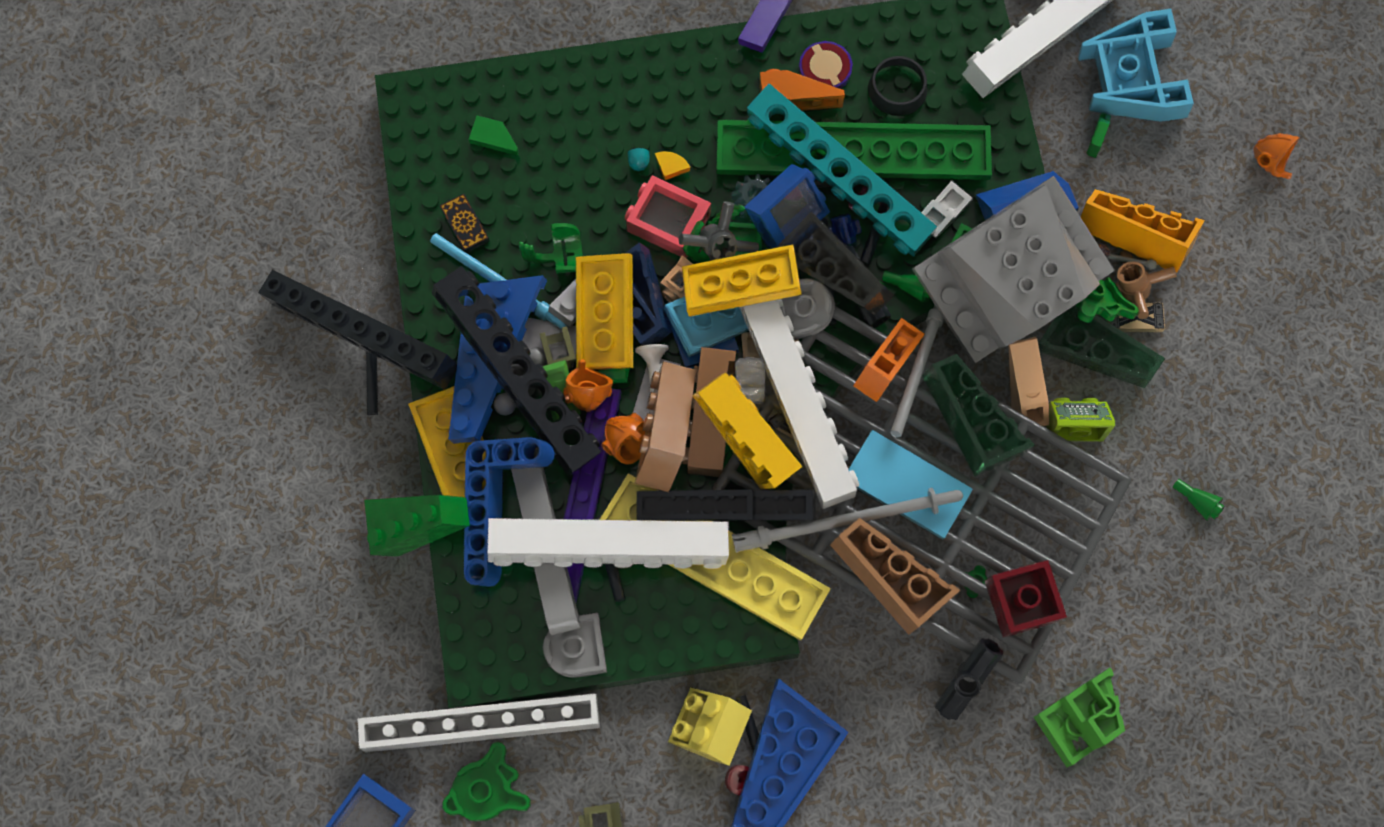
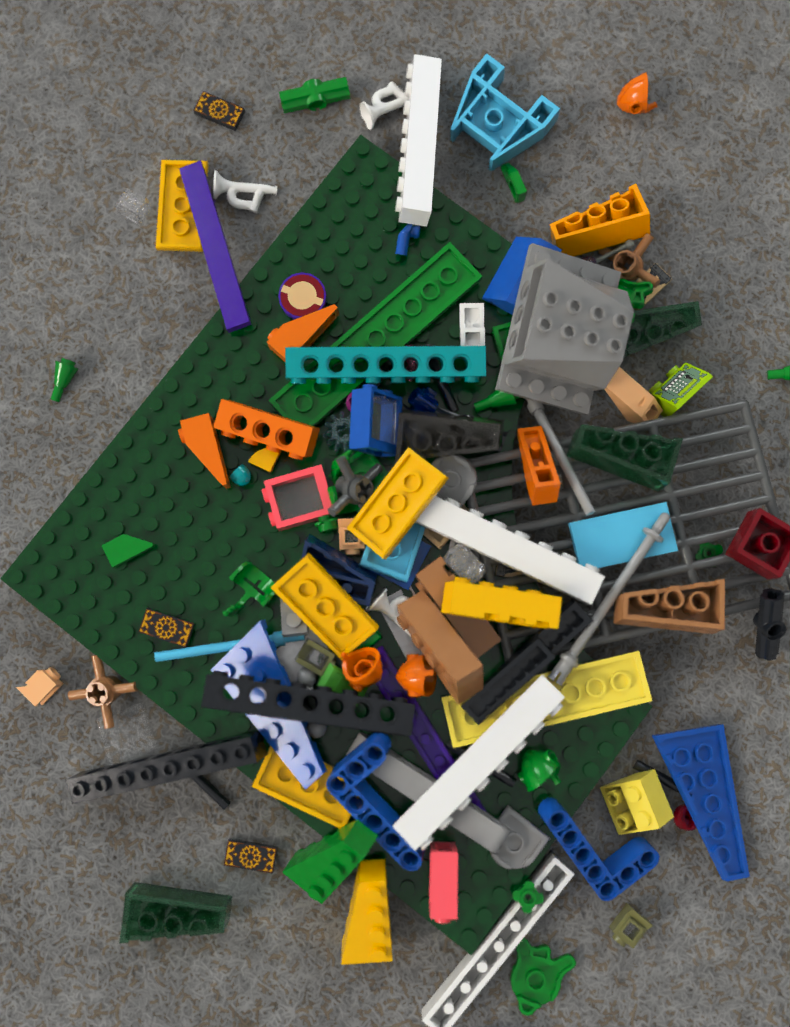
camera: 40 degrees left, 10 degrees up
(247, 449) = (171, 912): none -> clear green wedge
(323, 187) = (41, 686): none -> light nougat window
(351, 469) = (250, 856): none -> tile
(366, 232) = (95, 691): none -> medium nougat bar
(397, 597) = (368, 923): none -> yellow wedge
(485, 613) = (443, 881): none -> coral window
(547, 706) = (528, 889): none -> green plate
(624, 721) = (605, 877): none -> blue beam
(635, 105) = (204, 443): none -> orange slope
(652, 605) = (538, 767): none -> green helmet
(669, 255) = (327, 524): none -> green plate
(717, 169) = (232, 412): none -> orange brick
(897, 108) = (363, 289): black tyre -> none
(957, 90) = (408, 232): none -> blue arm

